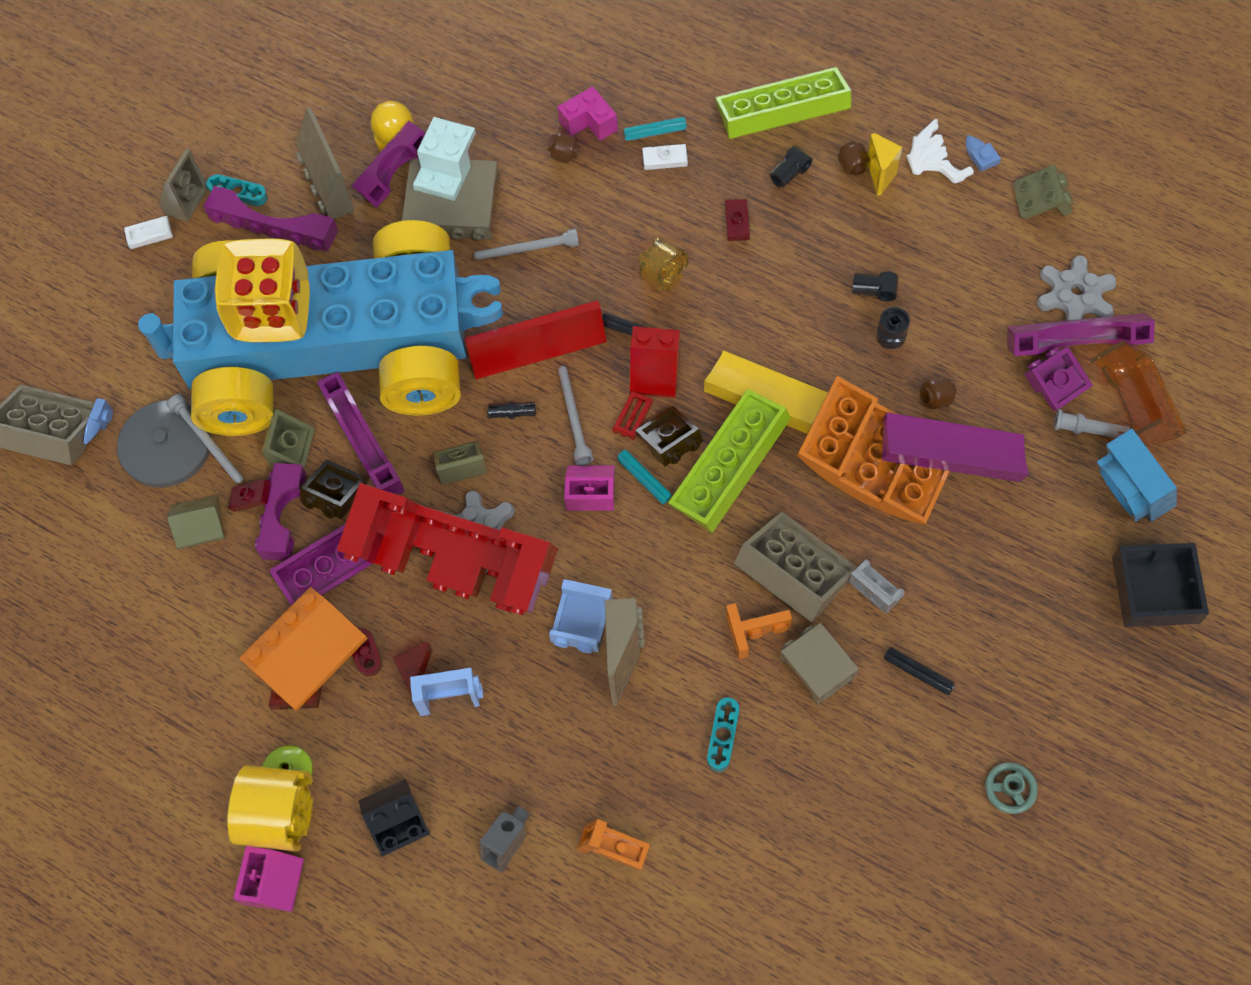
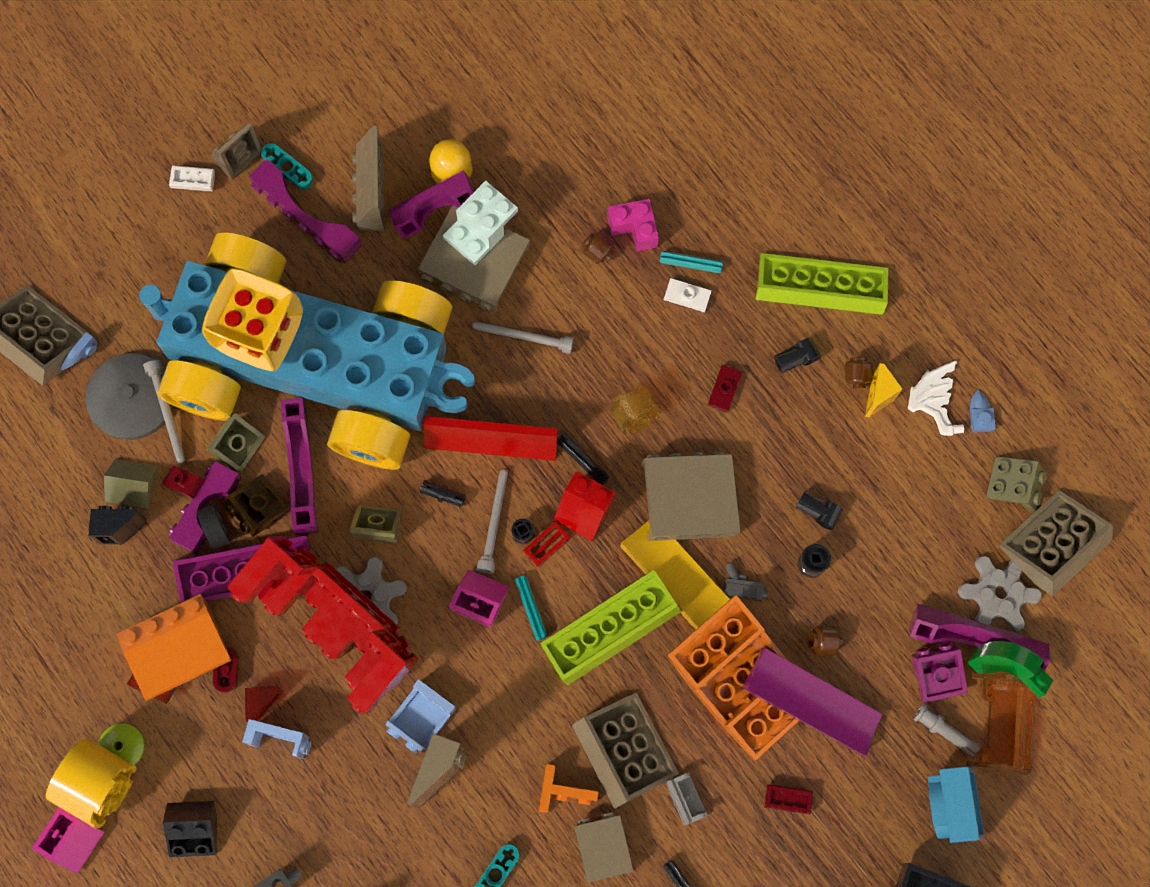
camera: 15 degrees right, 10 degrees up
(196, 558) = (114, 525): none -> black slope
(298, 522) = (213, 526): none -> black tyre
(604, 417) = (524, 534): none -> black wheel
(670, 436) = (569, 580): dark brown plate -> none
(752, 318) = (691, 496): none -> dark tan panel
(827, 376) = (743, 589): none -> dark grey piece
(974, 546) = (788, 799): none -> dark red plate
(1106, 226) = (1057, 542): none -> dark tan slope
(1129, 329) = (1012, 659): none -> green arch

